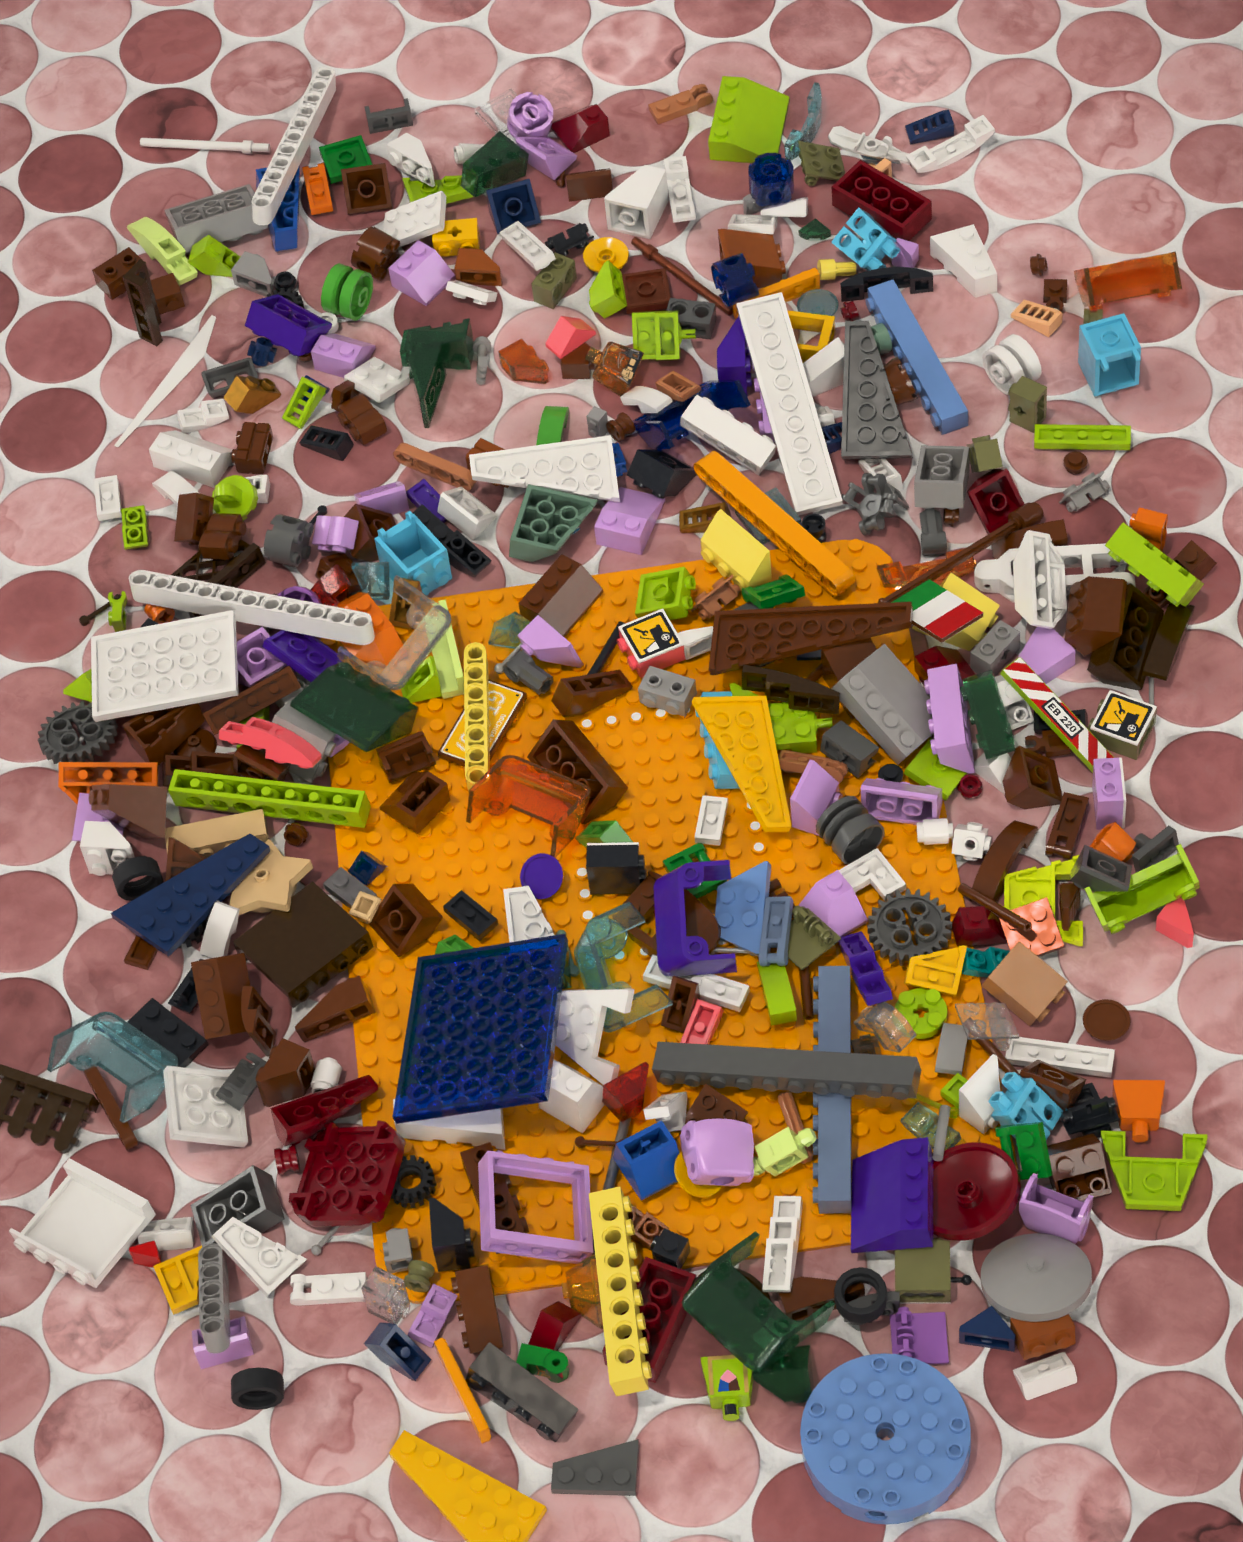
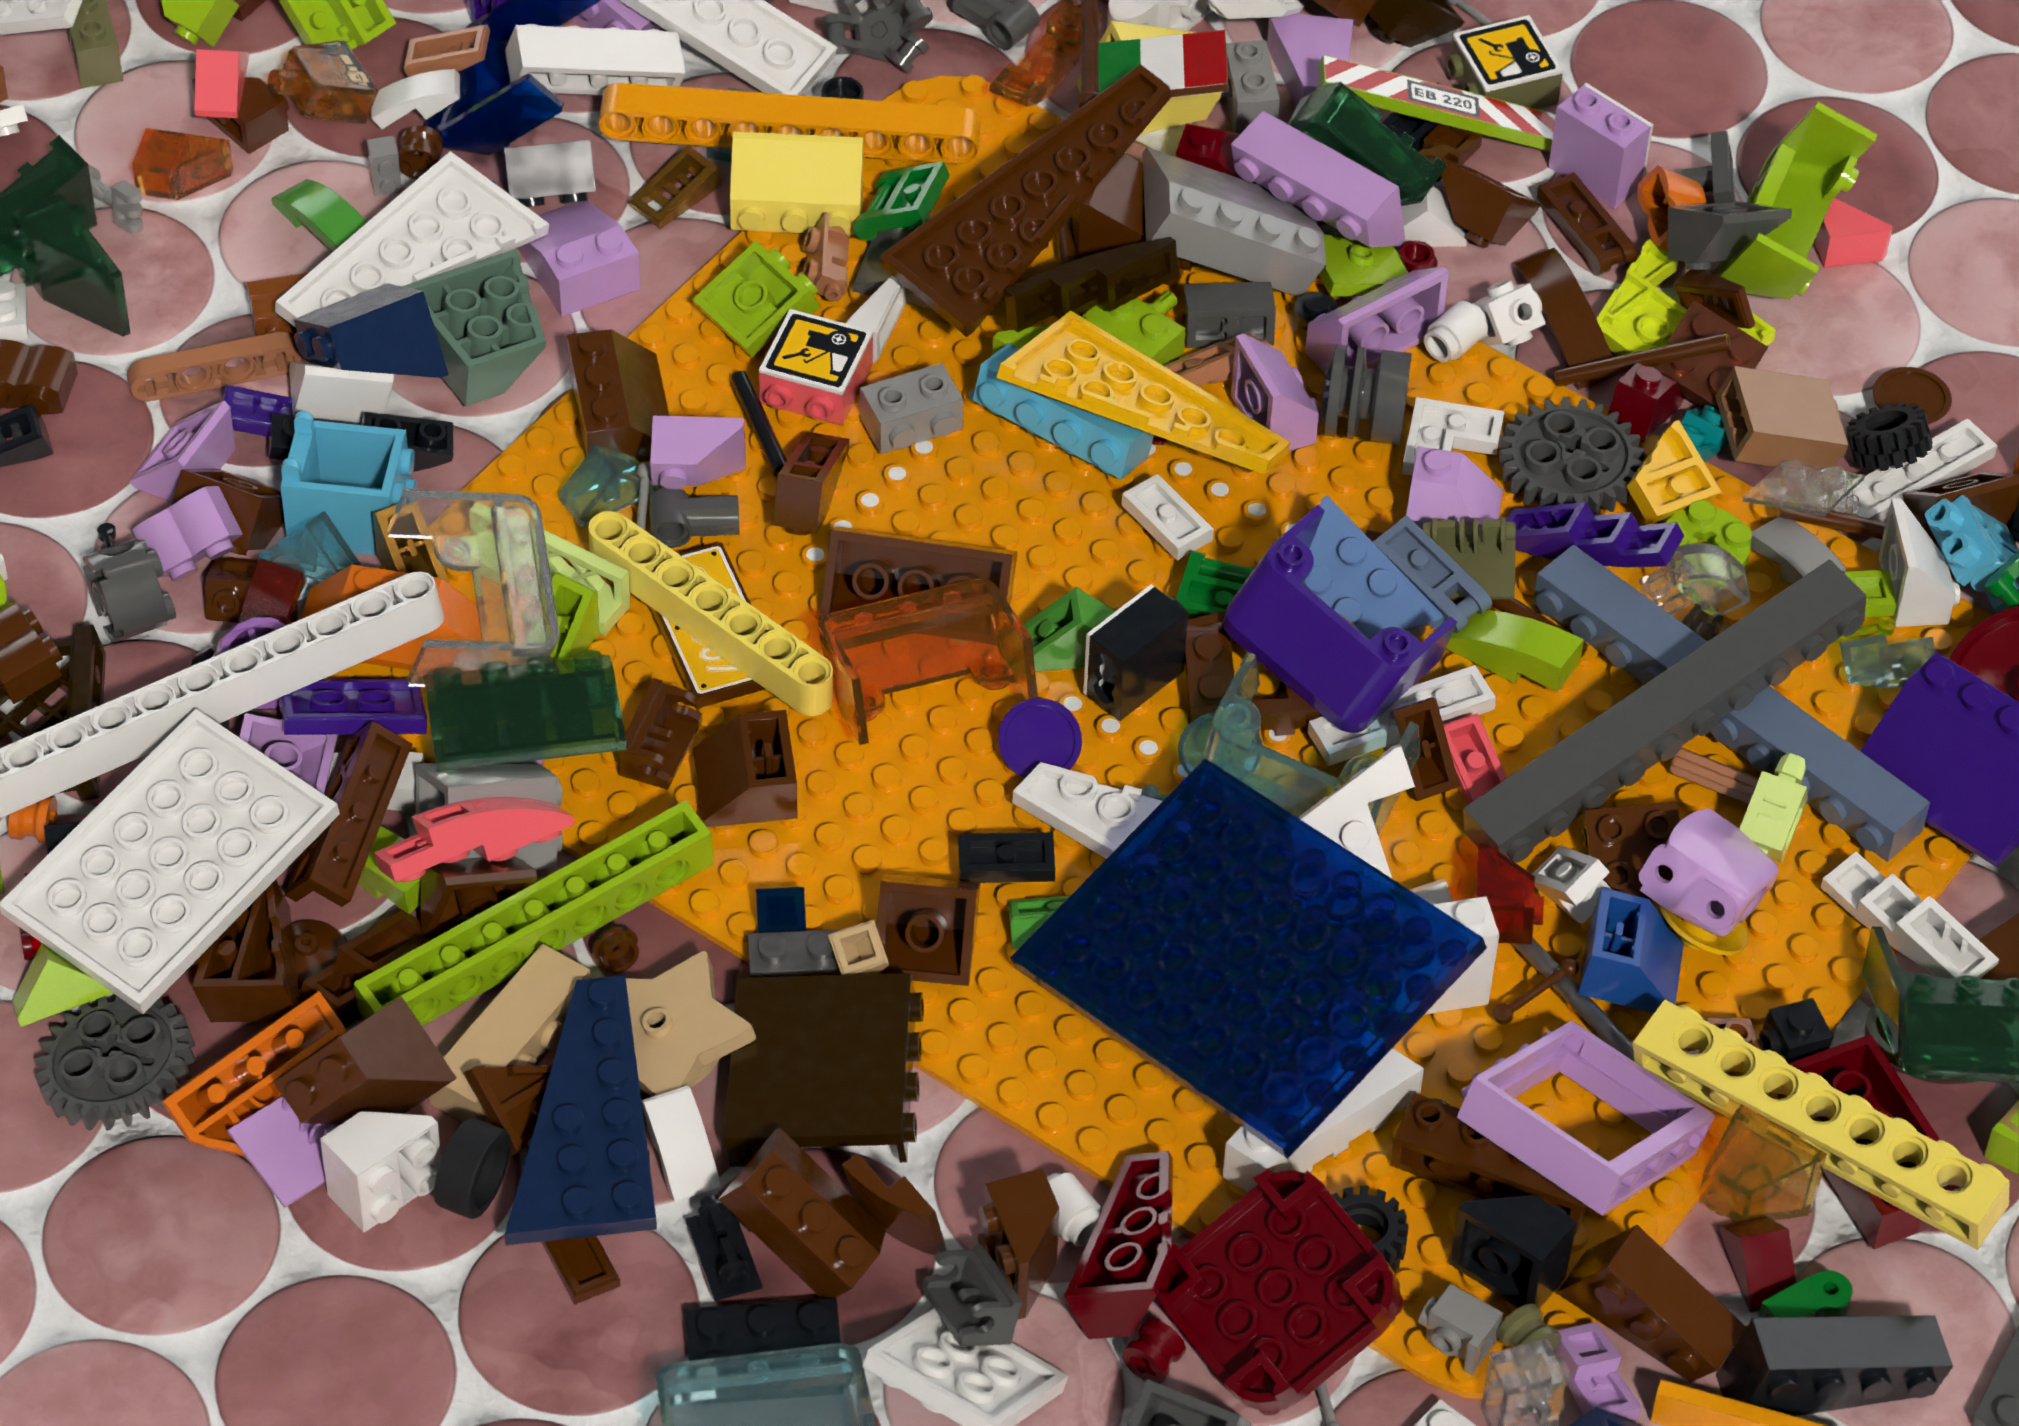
camera: 55 degrees left, 5 degrees down
(340, 1007) = (984, 1093): reddish brown slope -> none
(487, 498) = (375, 333): none -> dark blue slope
(941, 1133) = (1902, 640): light grey piece -> none
(1063, 1029) = (1889, 436): none -> black tyre

